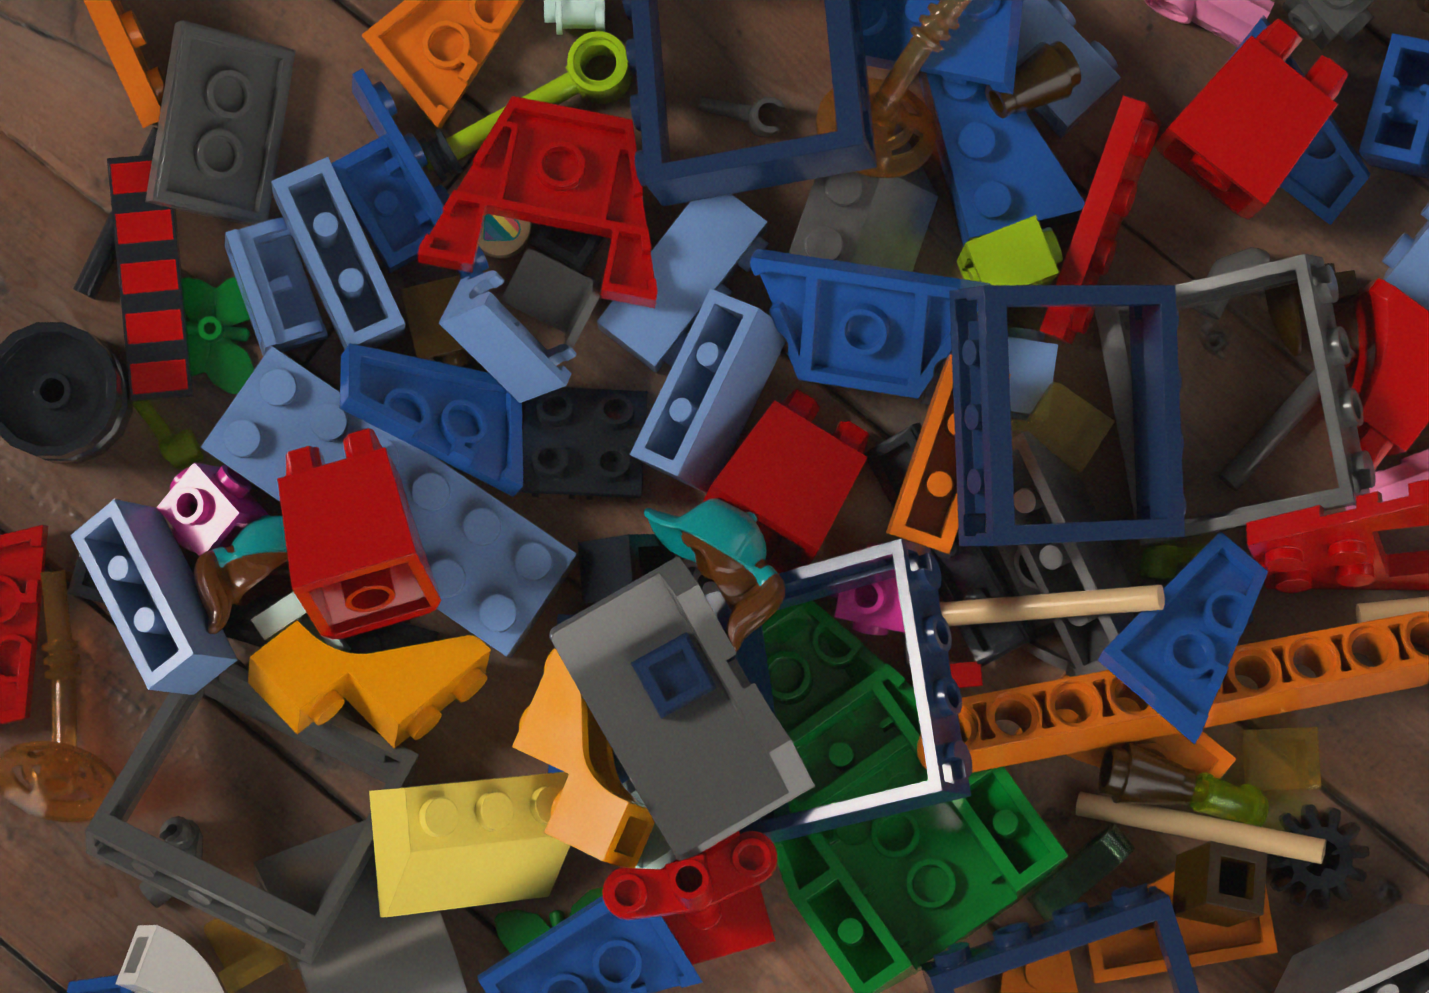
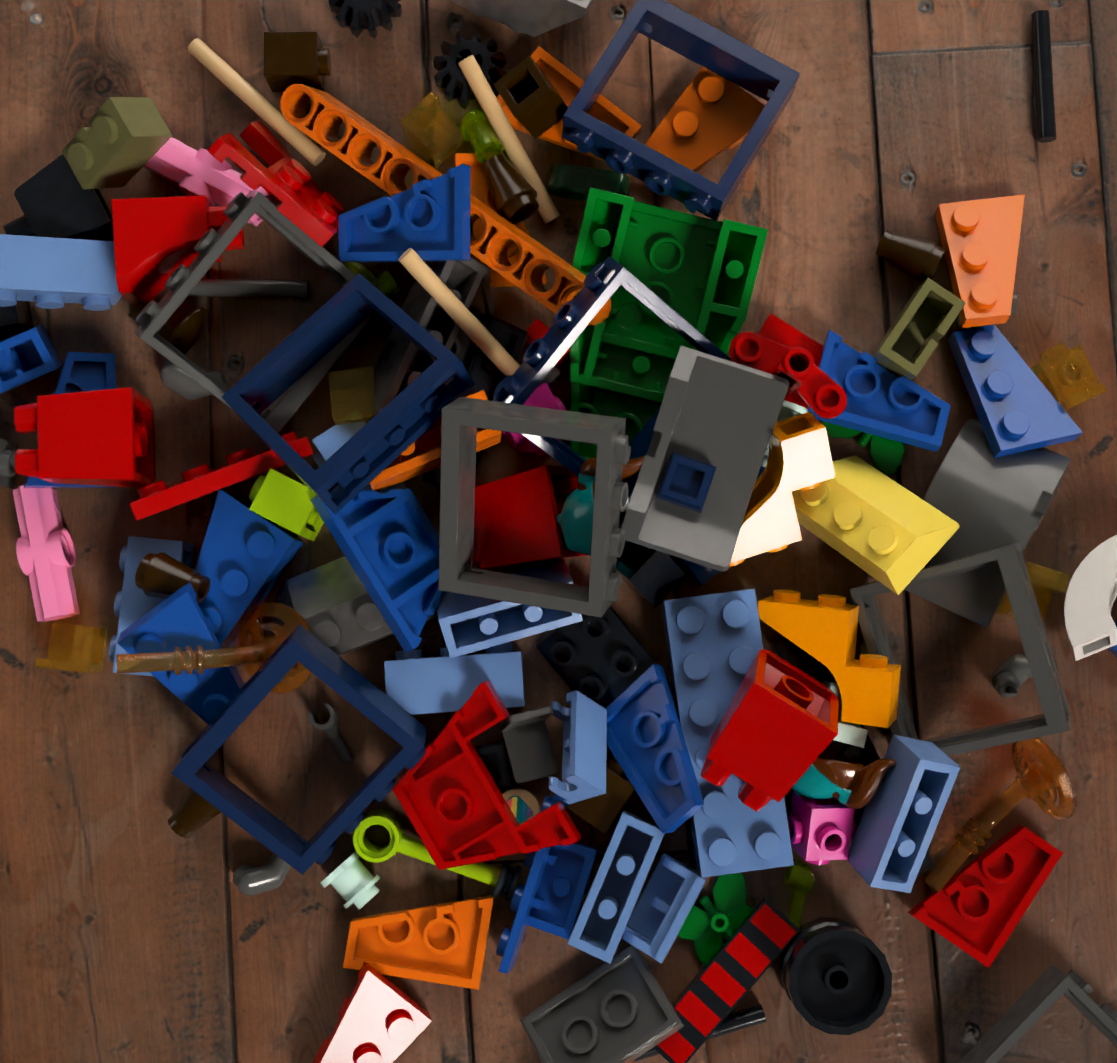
camera: 135 degrees left, 0 degrees up
(788, 367) = (457, 504): none -> dark grey window

